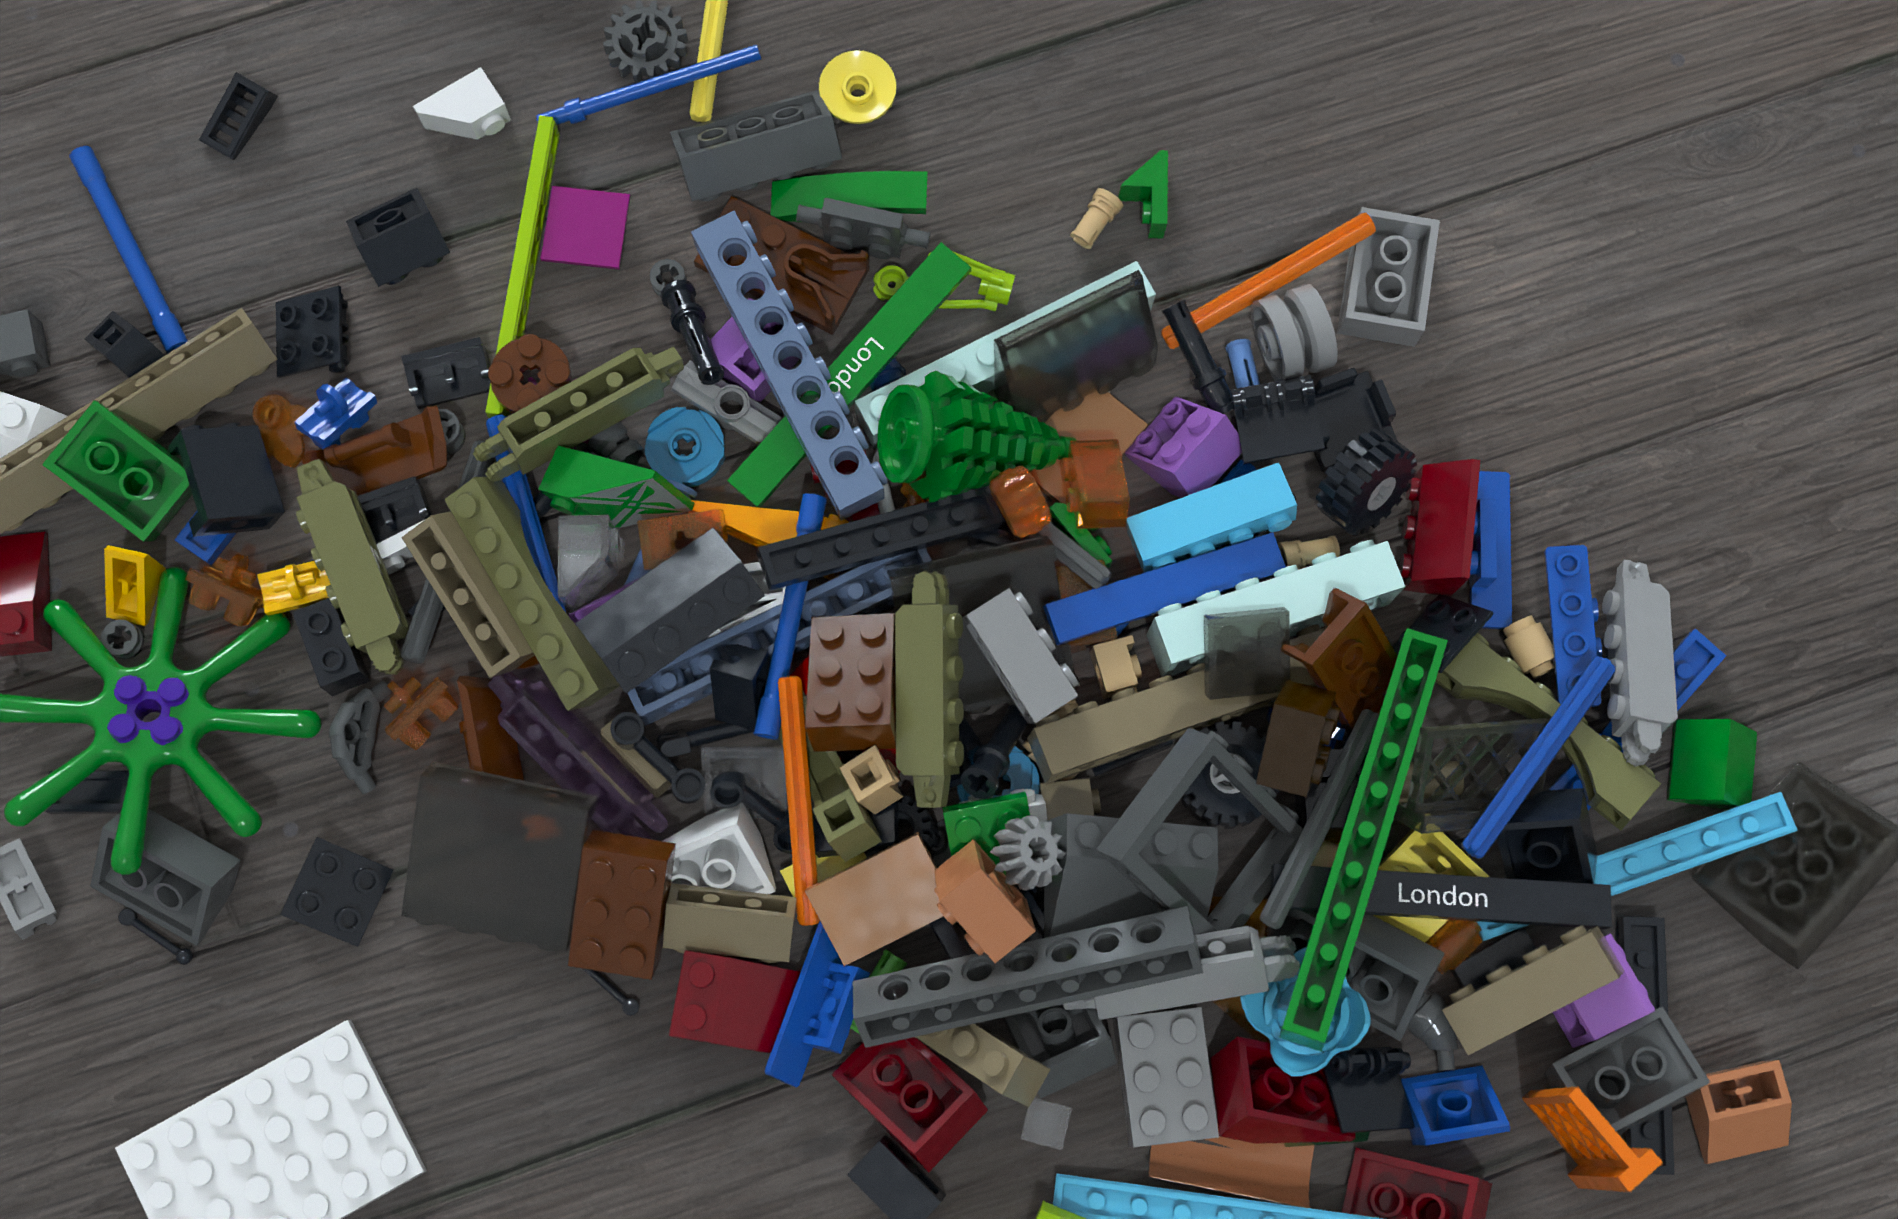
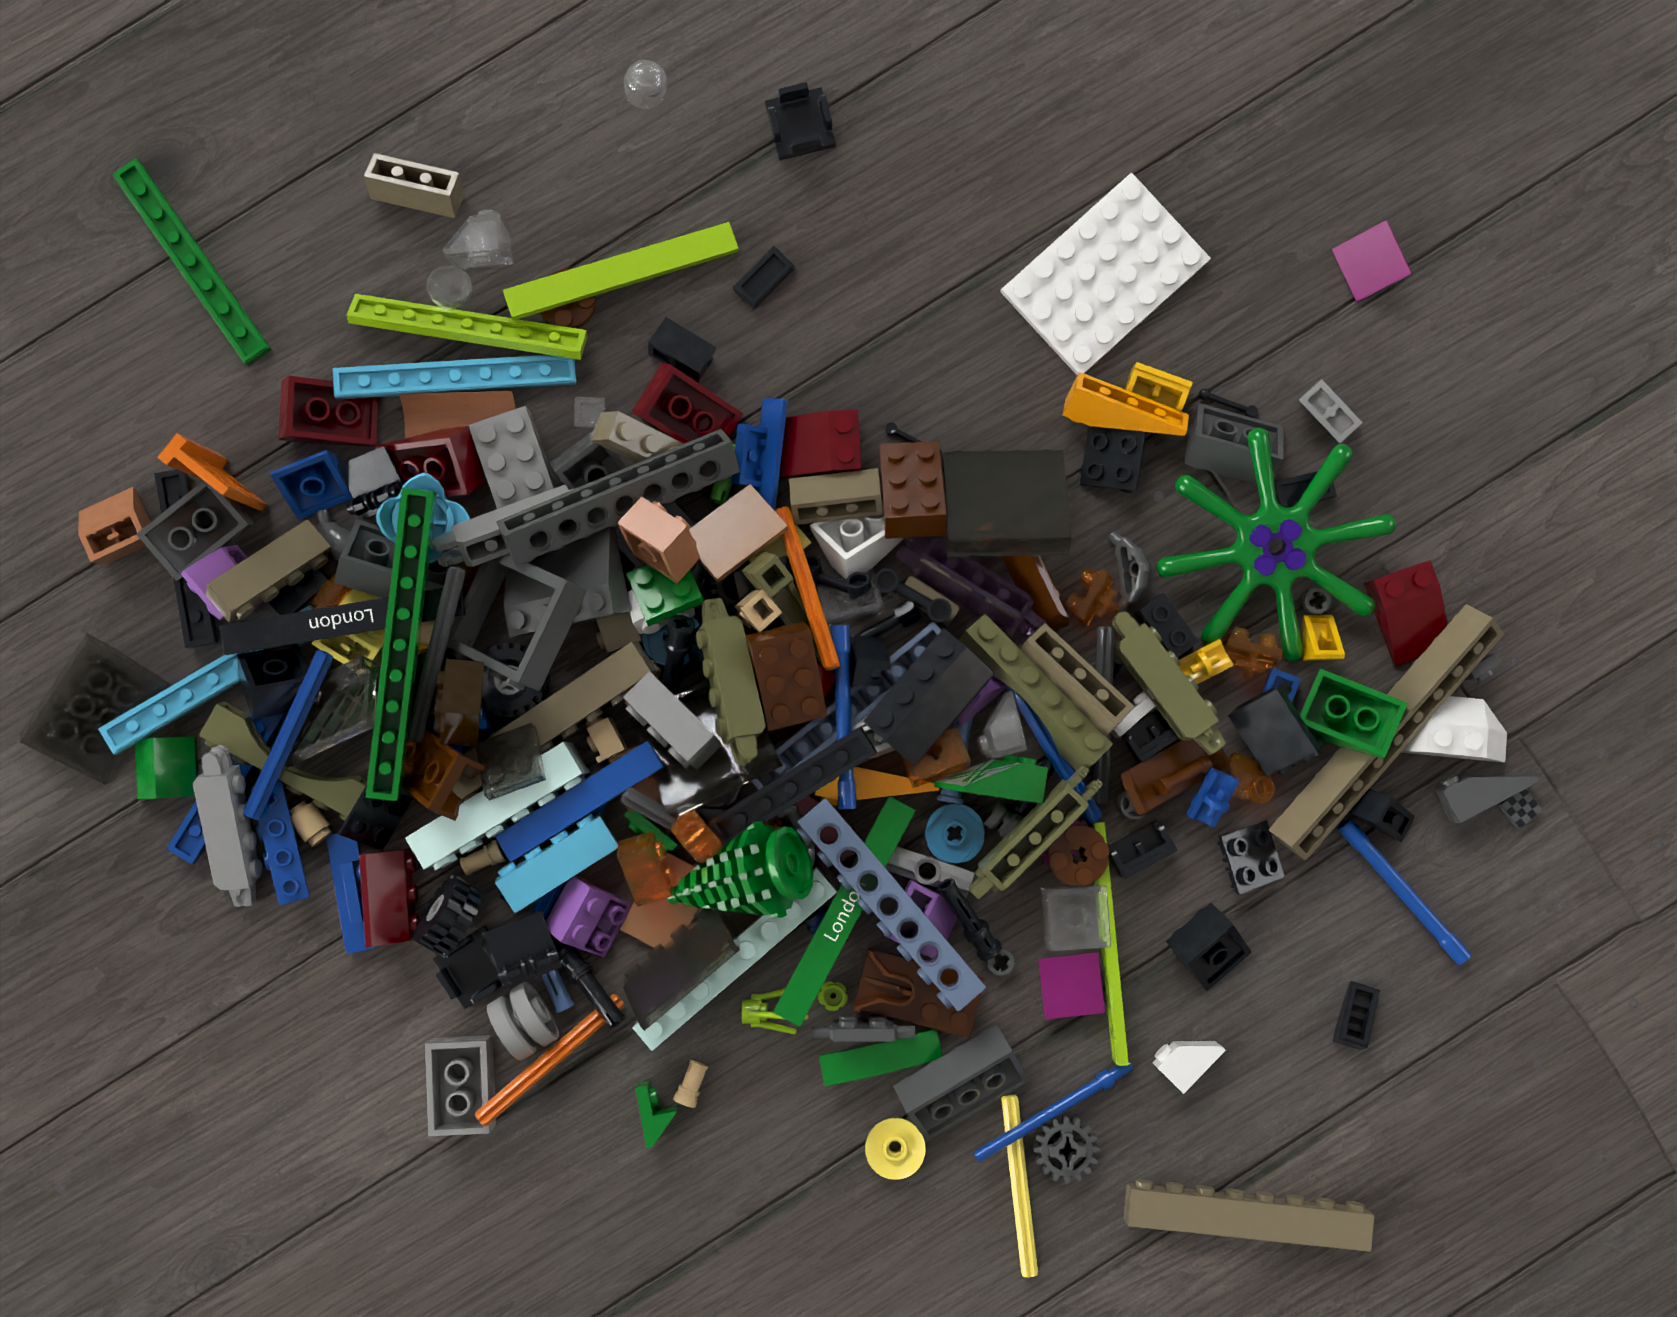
camera: 170 degrees right, 10 degrees up
(248, 974) = (1158, 386): none -> yellow hinge
(316, 961) = (1110, 406): none -> light orange slope
(557, 303) = (1075, 917): none -> clear slope
(1028, 852) = (635, 579): light grey gear -> none

